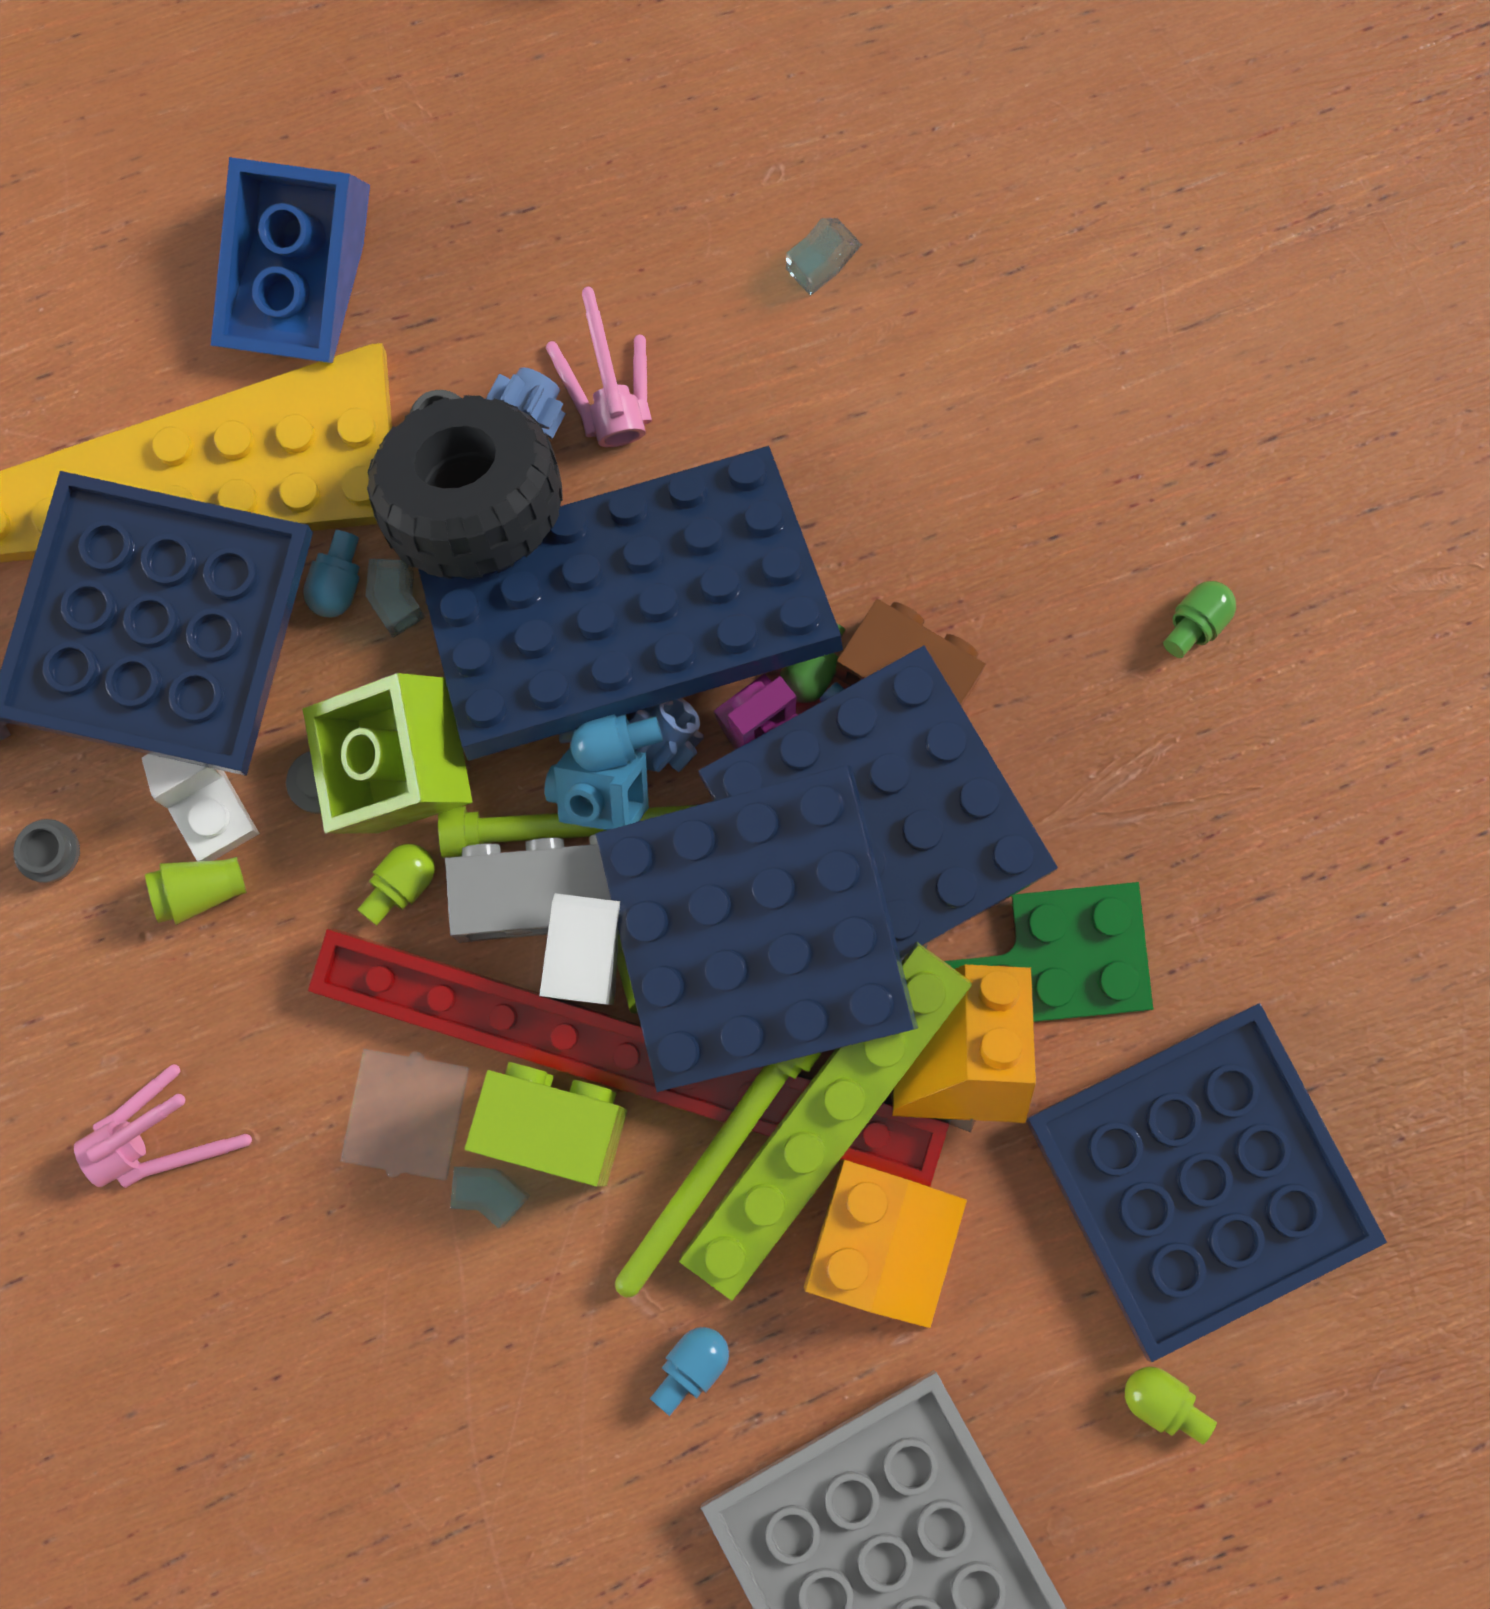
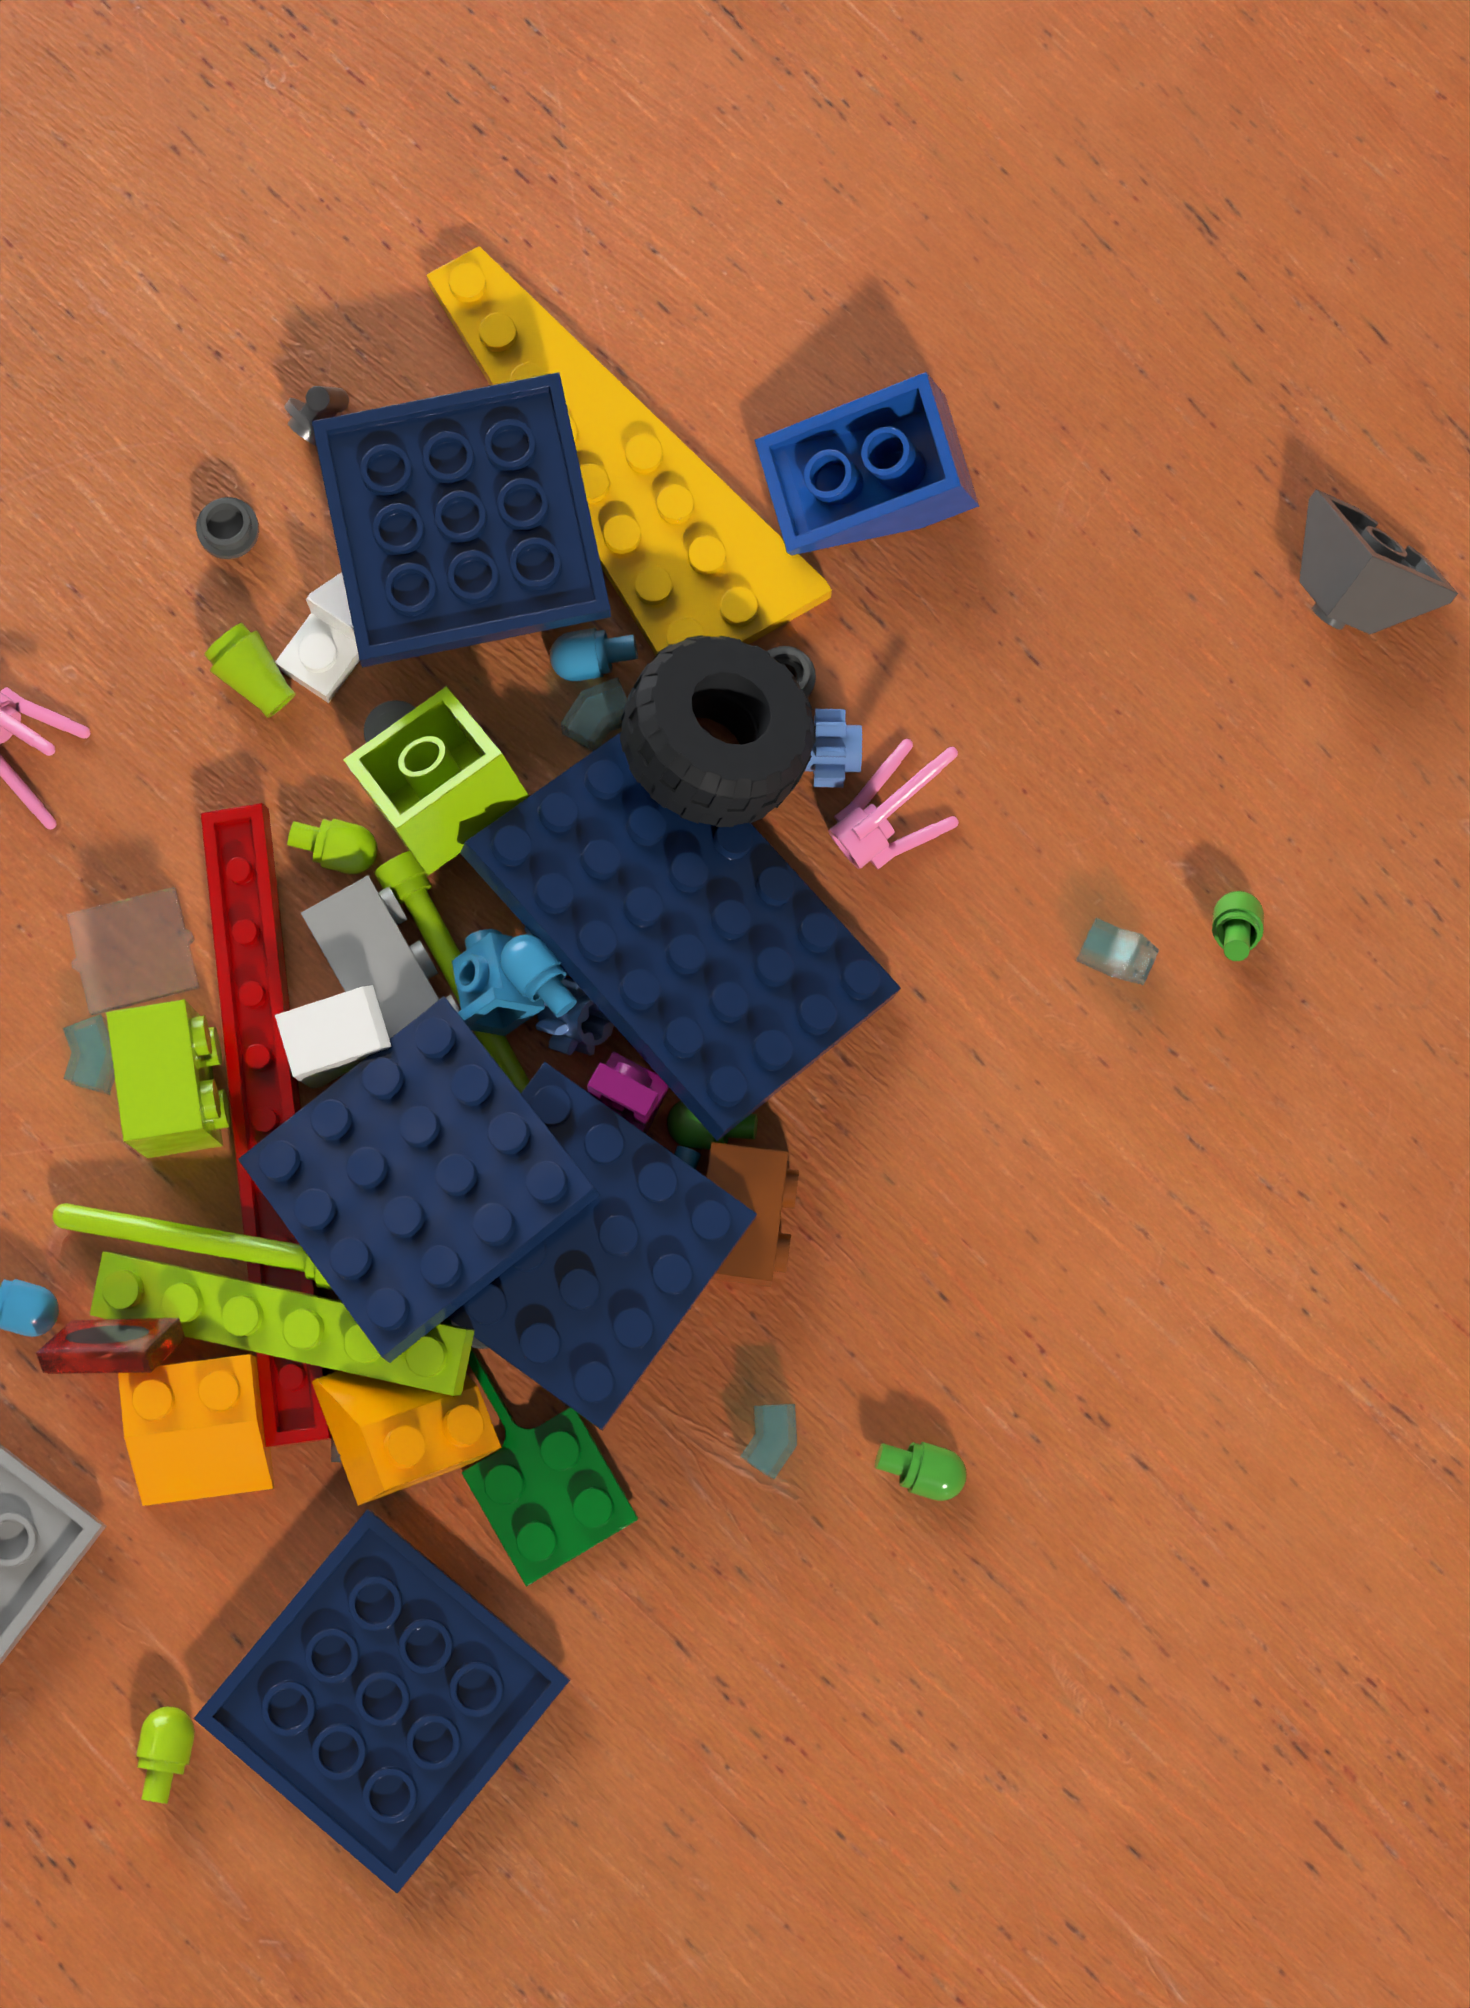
camera: 60 degrees right, 0 degrees up
(775, 1289) = (111, 1346): none -> clear red tile
(846, 143) = (1238, 924): none -> bright green cylinder
(1118, 734) = (773, 1438): none -> clear light blue piece

